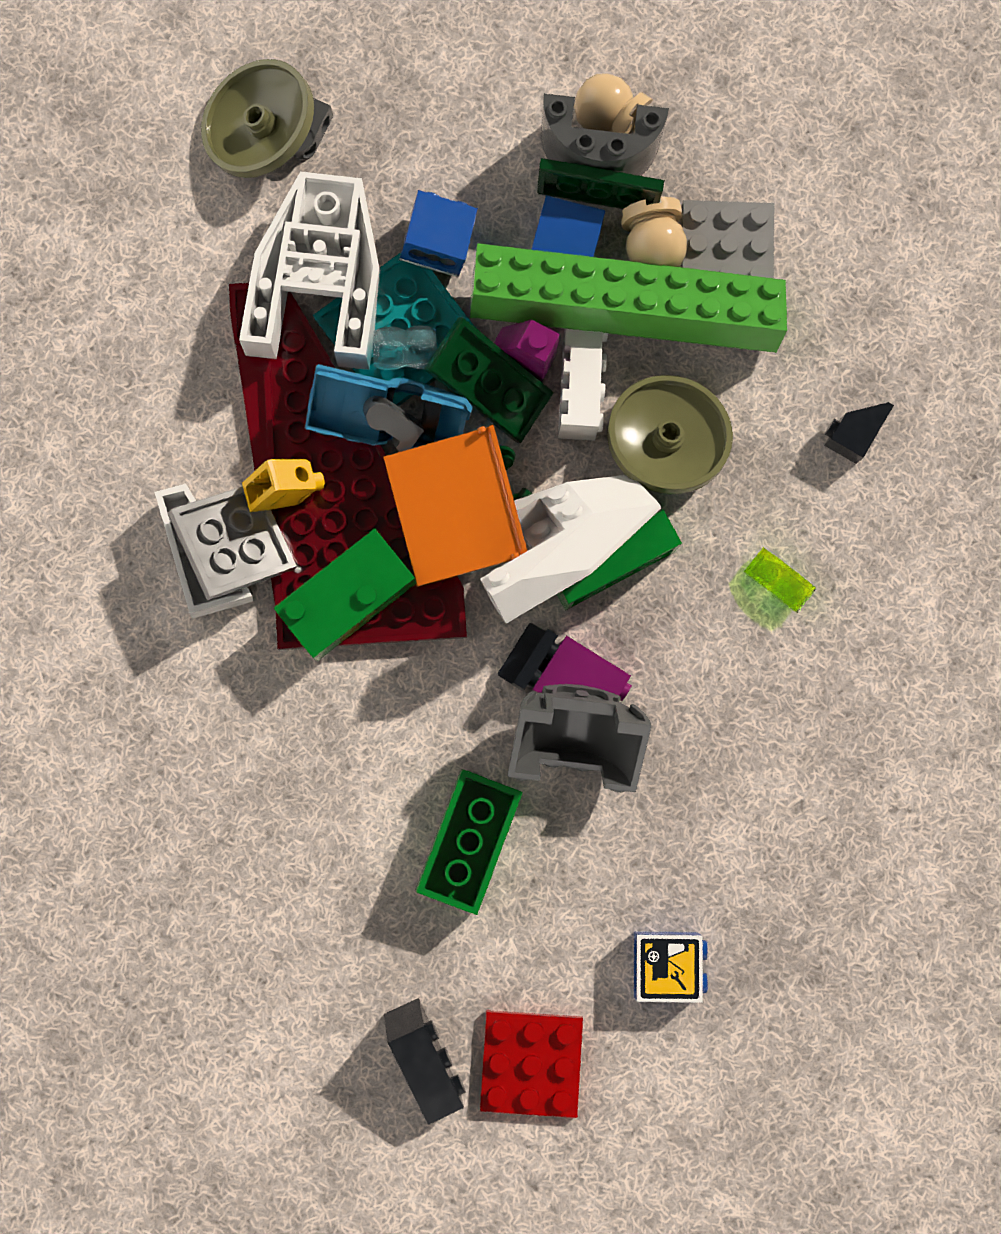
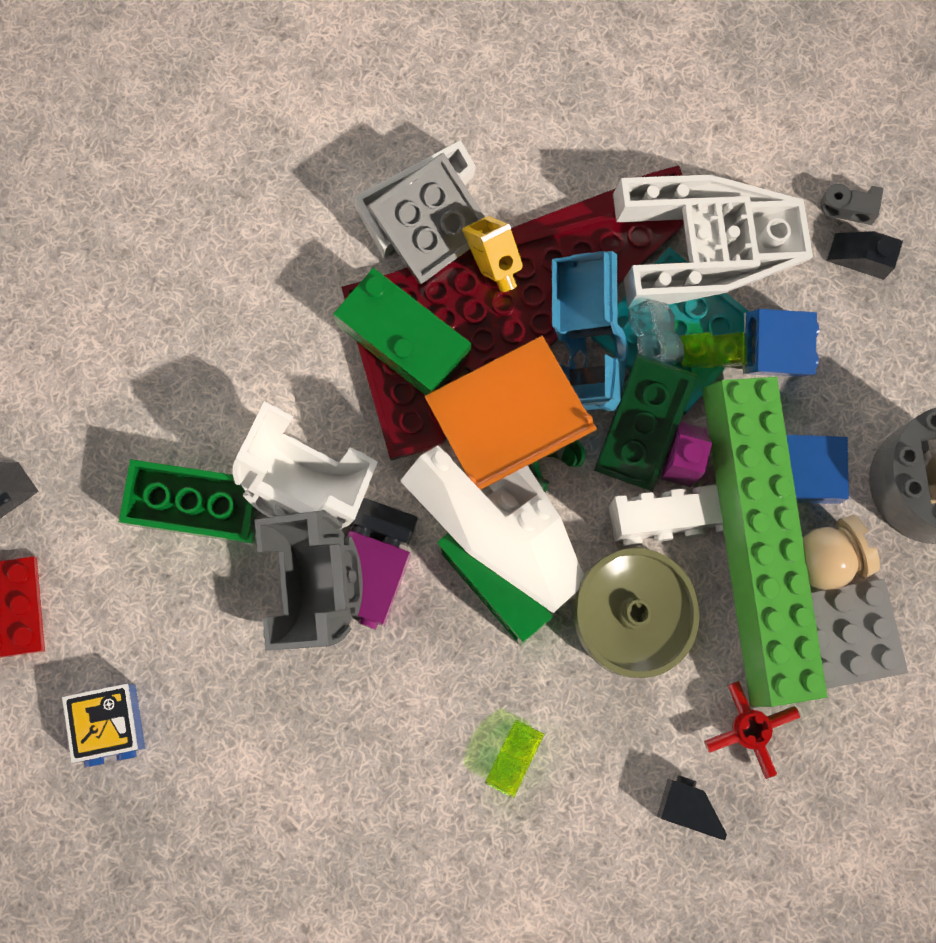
camera: 80 degrees right, 5 degrees down
(257, 118) = (846, 152): olive dish -> none
(363, 129) = (866, 252): none -> black slope
(387, 416) = (580, 338): dark grey leg -> none
(430, 297) = (711, 350): none -> clear neon green slope
(476, 725) = (292, 478): none -> white cylinder
(596, 185) = (872, 484): dark green tile -> none
(791, 365) = (741, 722): none -> red bar

